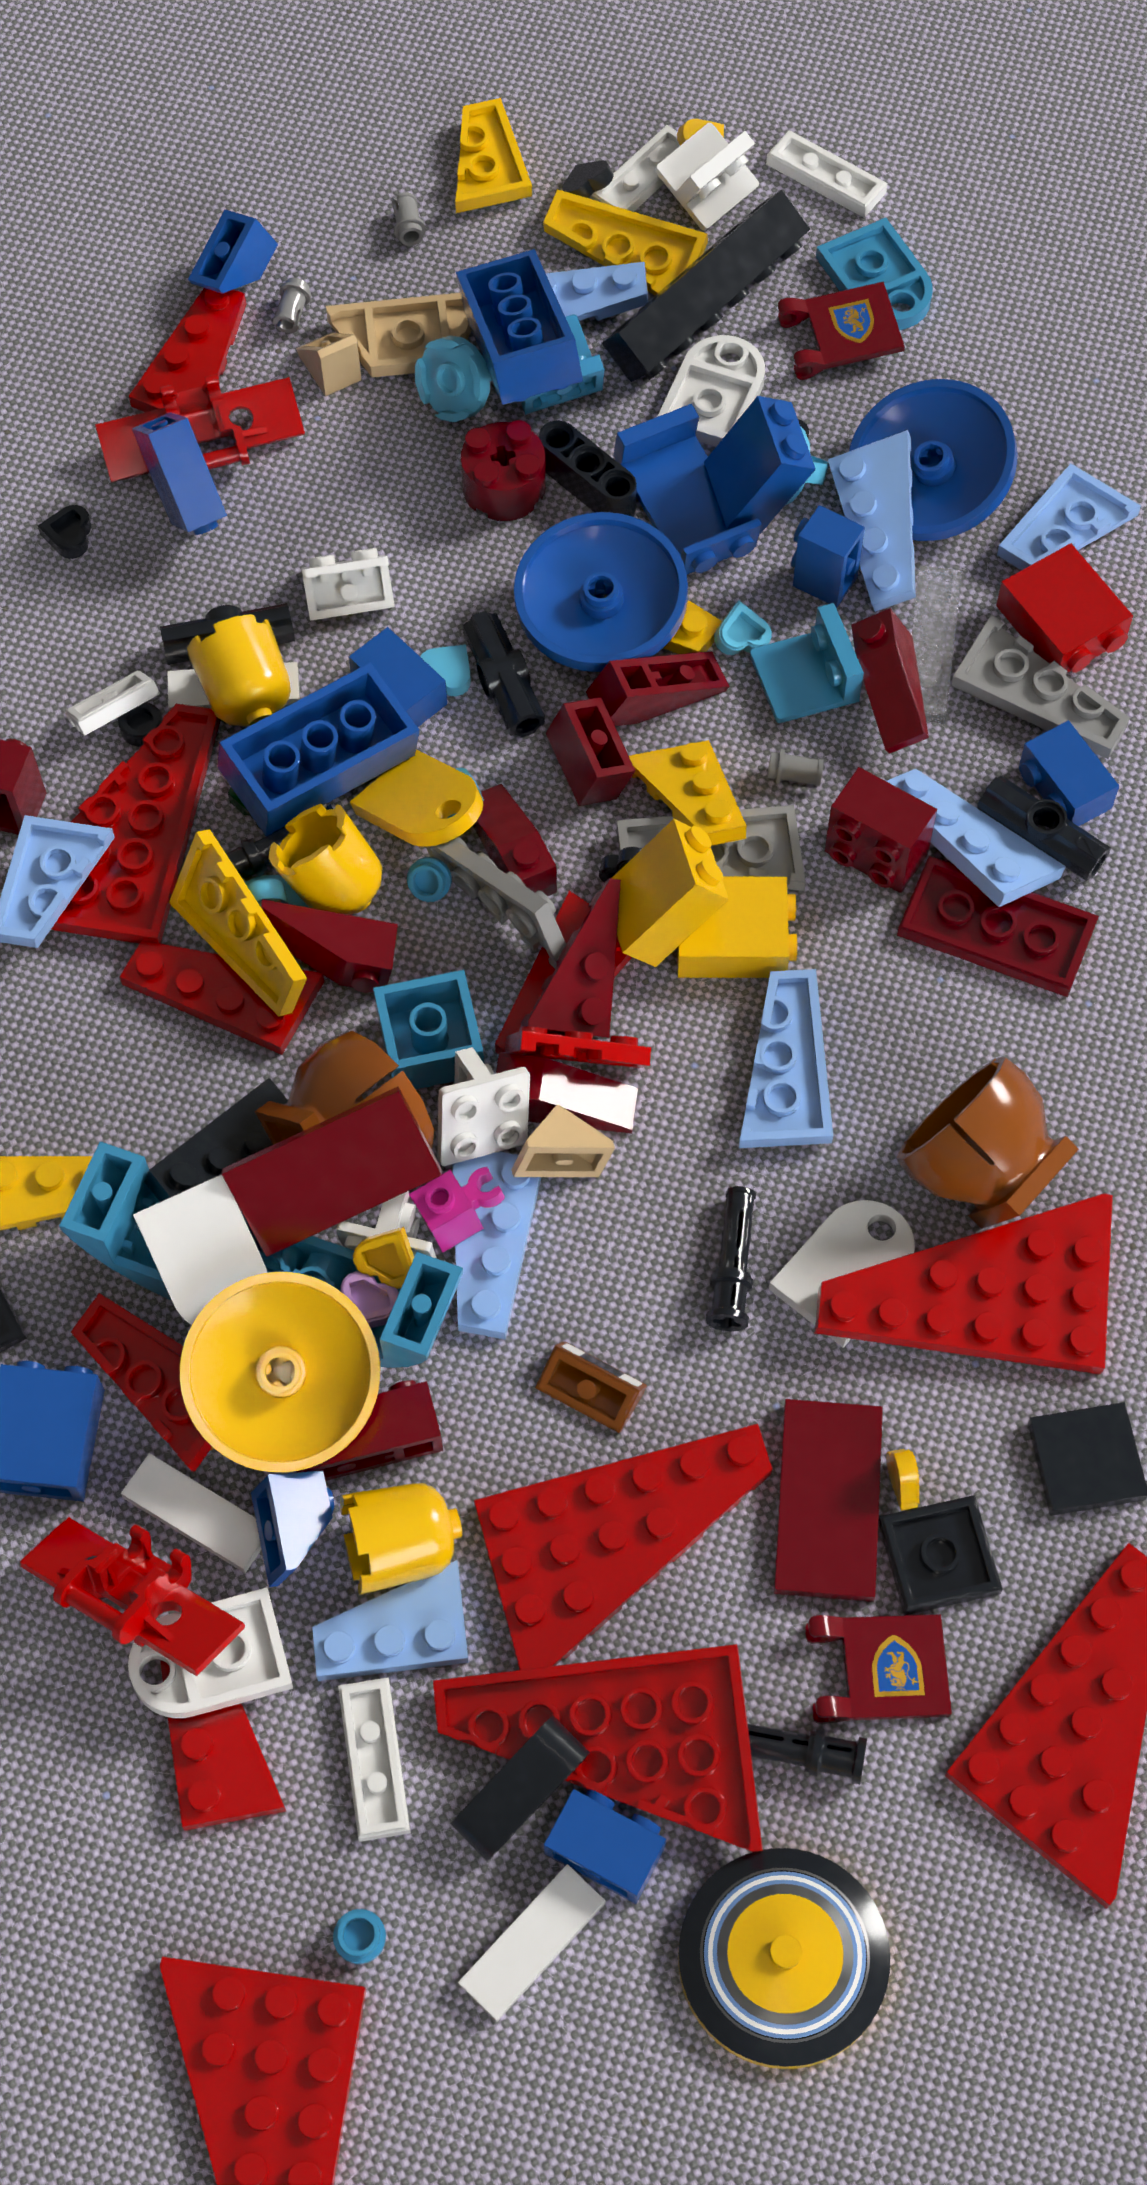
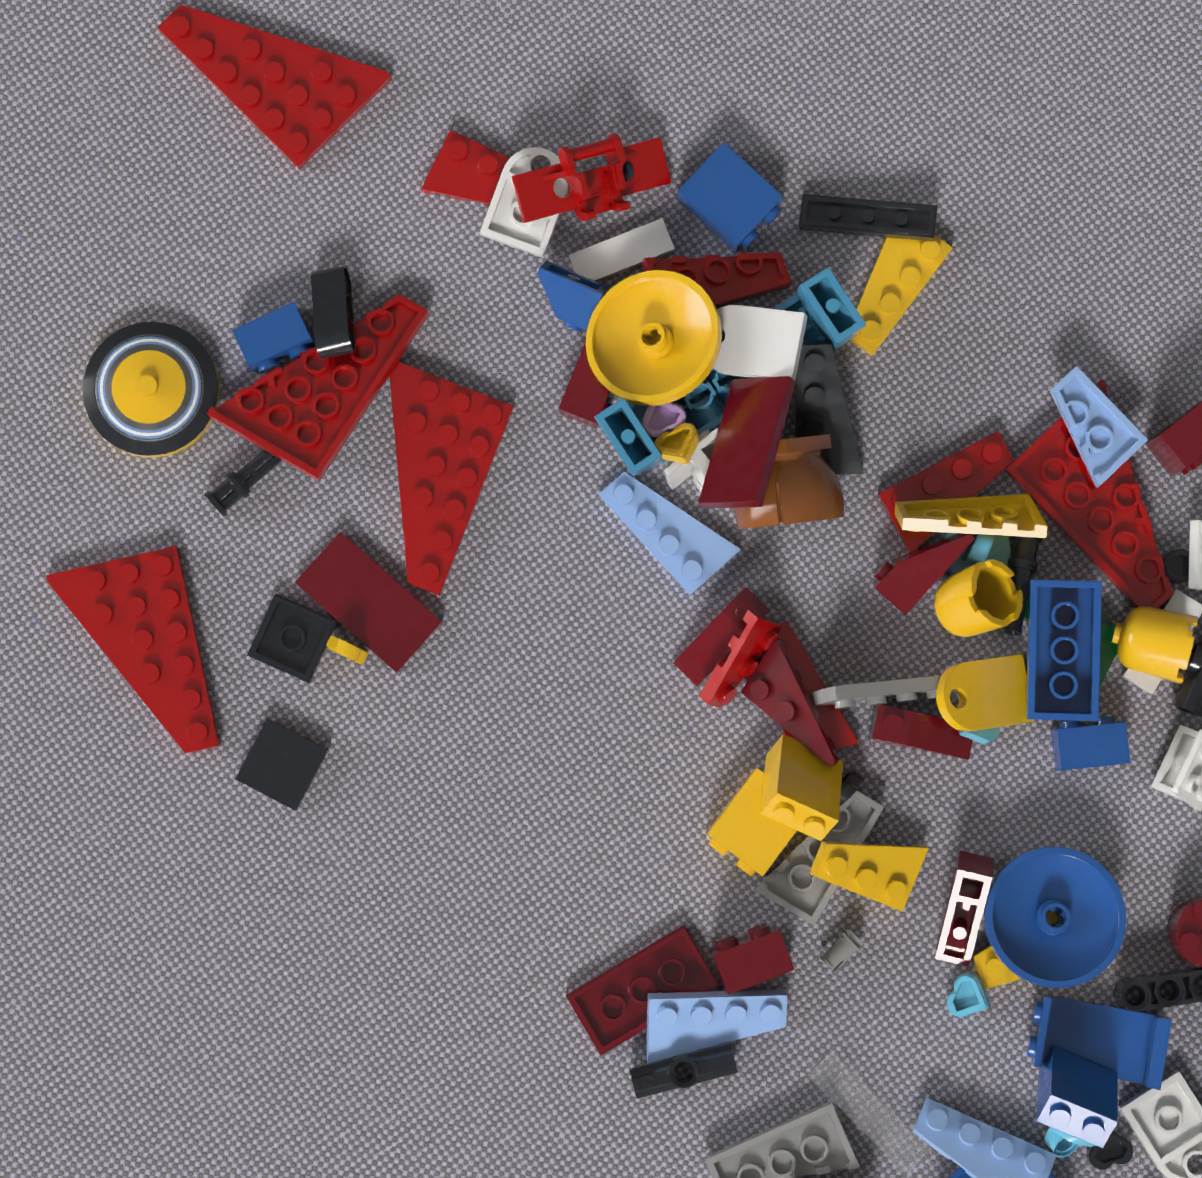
camera: 125 degrees right, 20 degrees up
(359, 1936) = (326, 182): dark azure plate -> none
(374, 1759) = (413, 254): white tile -> none
(396, 1631) = (472, 315): light blue wing -> none
(398, 1535) = (519, 346): yellow cylinder -> none
(426, 1024) = (819, 583): dark azure brick -> none
(429, 879) = (929, 661): dark azure plate -> none
(451, 665) = (1079, 787): medium azure tile -> none
(451, 1209) = (689, 515): dark pink brick -> none
(481, 1110) = (738, 571): white bracket -> none
(503, 674) = (1047, 817): black piece -> none
(531, 1942) = (256, 266): white tile -> none
(563, 1148) = (686, 607): tan slope -> none
(590, 751) = (944, 825): dark red brick -> none
(590, 1386) = (533, 522): dark orange slope -> none
(731, 1279) = (534, 646): black pin -> none
(789, 1074) = (636, 780): light blue wing -> none
(810, 670) = (907, 1013): dark azure bracket -> none
(827, 555) = (978, 1089): blue brick -> none
(838, 1249) = (493, 717): white tile -> none
(890, 1667) = (253, 562): dark red flag -> none
(891, 679) = (855, 1056): dark red slope -> none
(987, 1145) = (497, 854): dark orange plate -> none
(1003, 1294) = (408, 795): red wing -> none
(1068, 773) = (708, 1116): blue brick -> none

